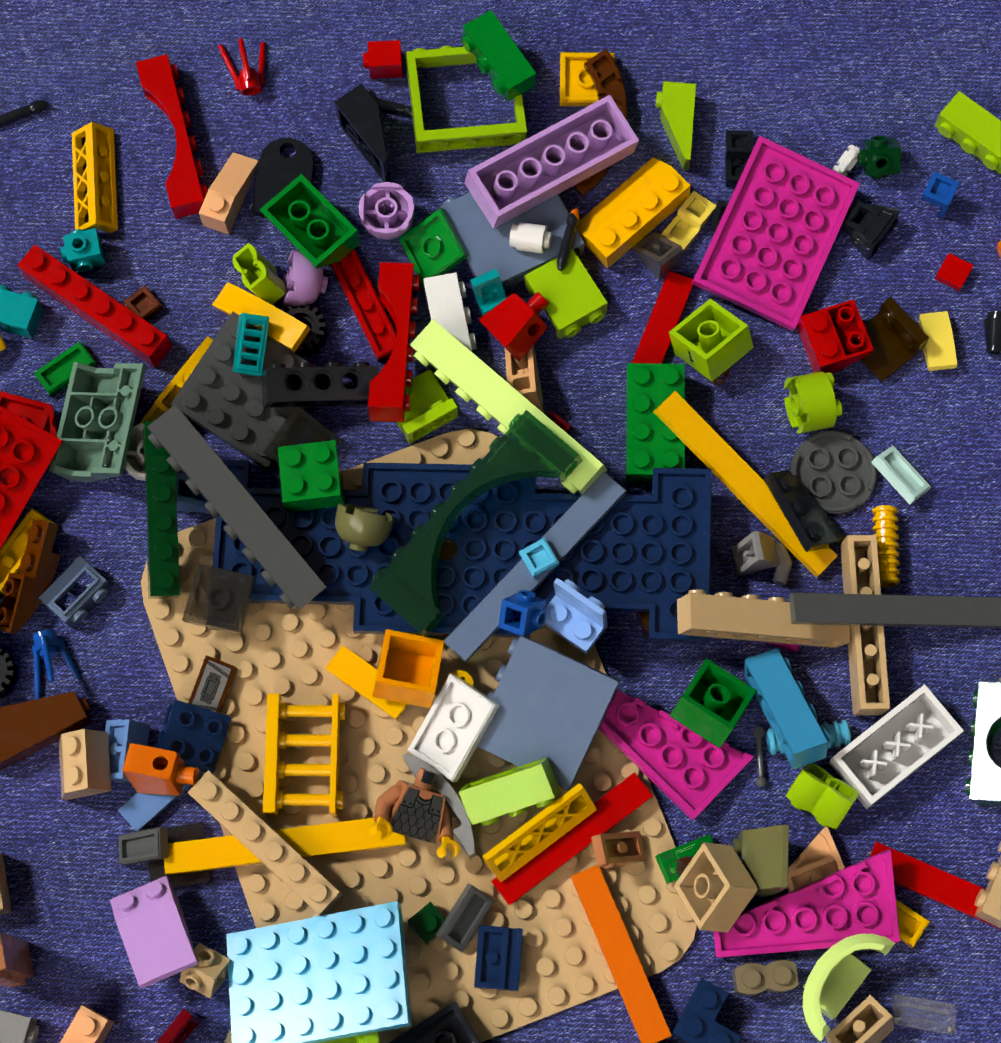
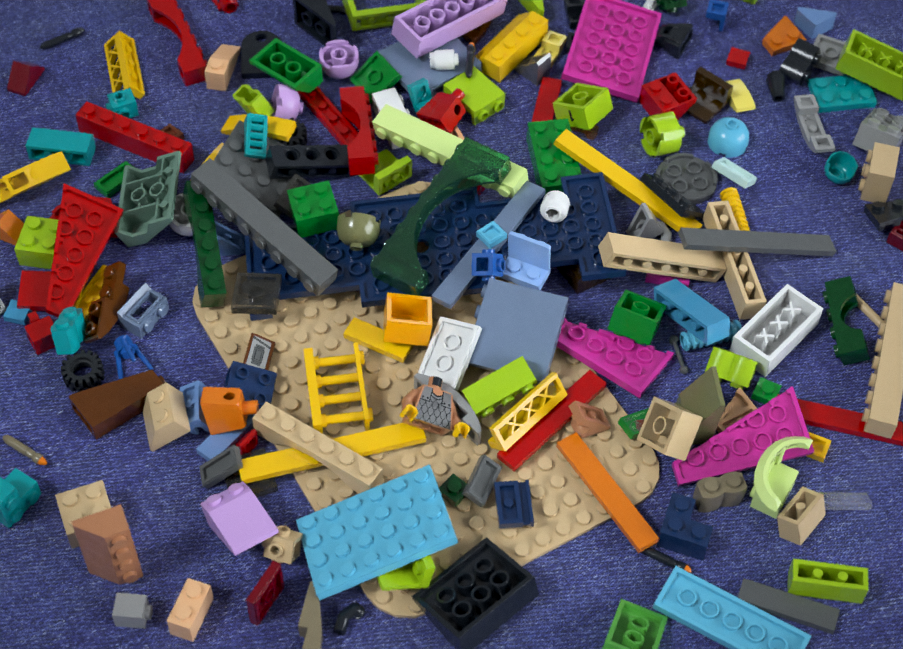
camera: 15 degrees left, 20 degrees down
(179, 810) = (248, 442): none -> red slope
(632, 525) = (555, 206): none -> white head
(862, 832) = (765, 391): none -> green plate
(907, 413) = (728, 137): none -> medium azure cylinder

